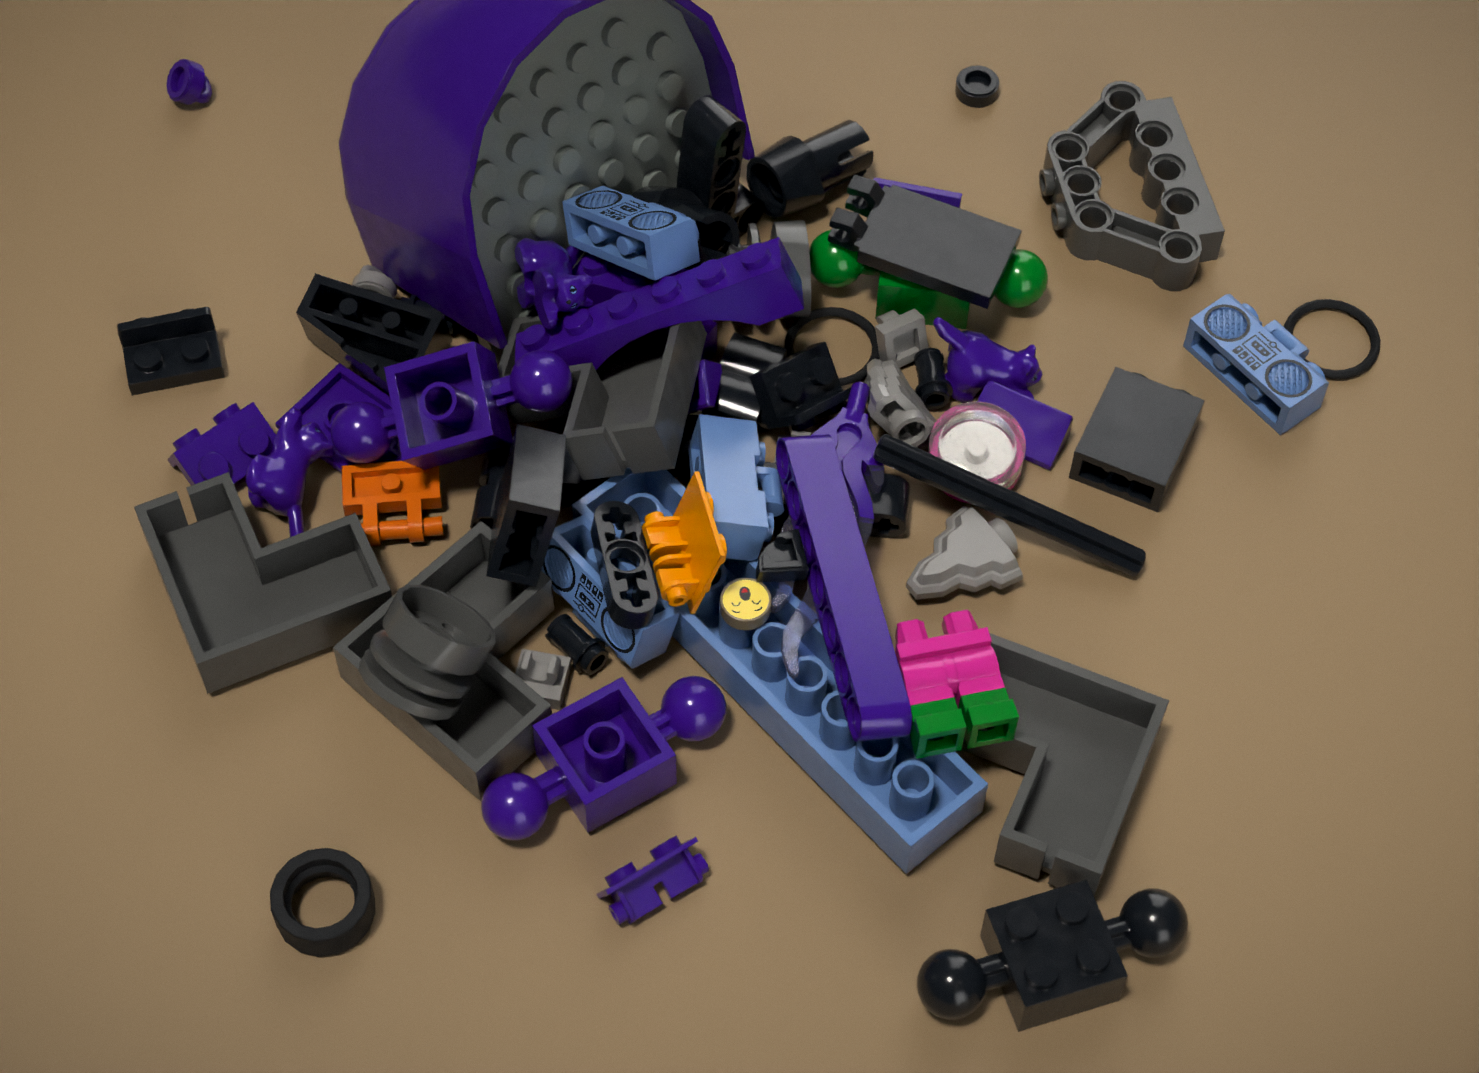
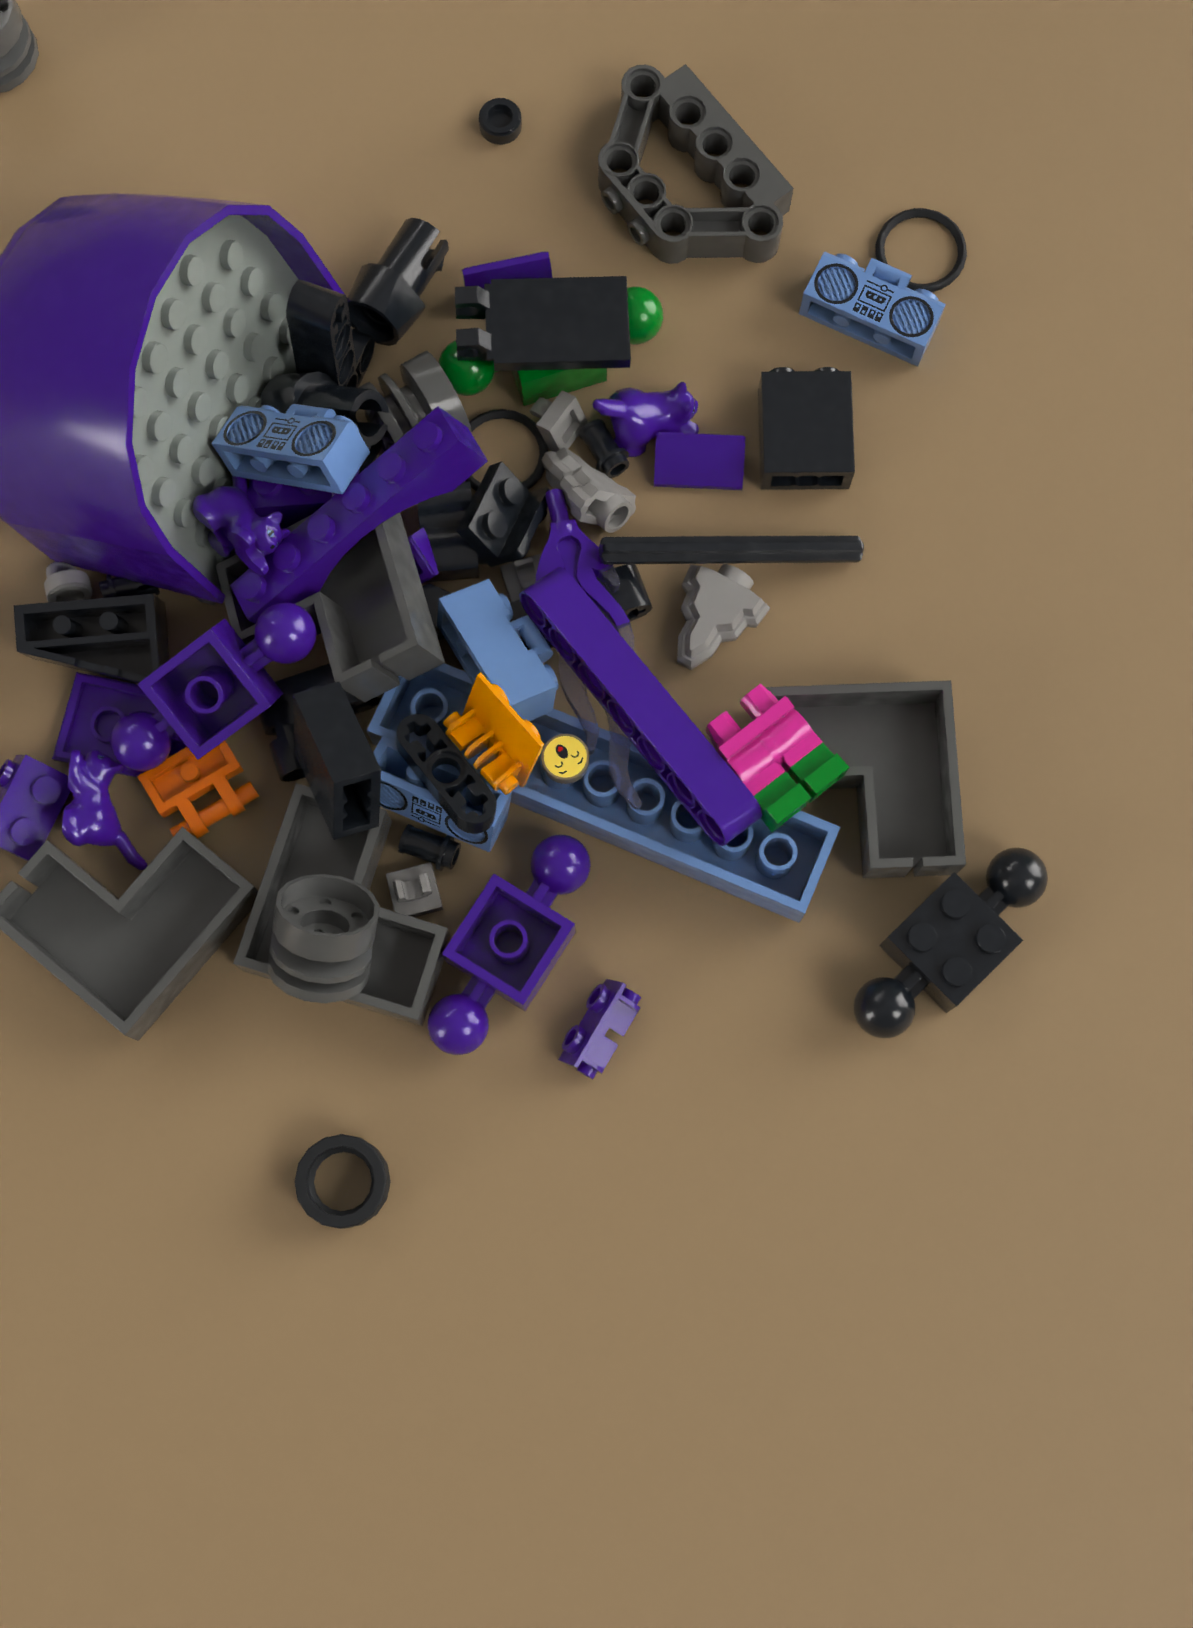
camera: 25 degrees left, 20 degrees up
(783, 559) = (578, 704): black tile -> none
(980, 441) = (679, 501): clear piece -> none

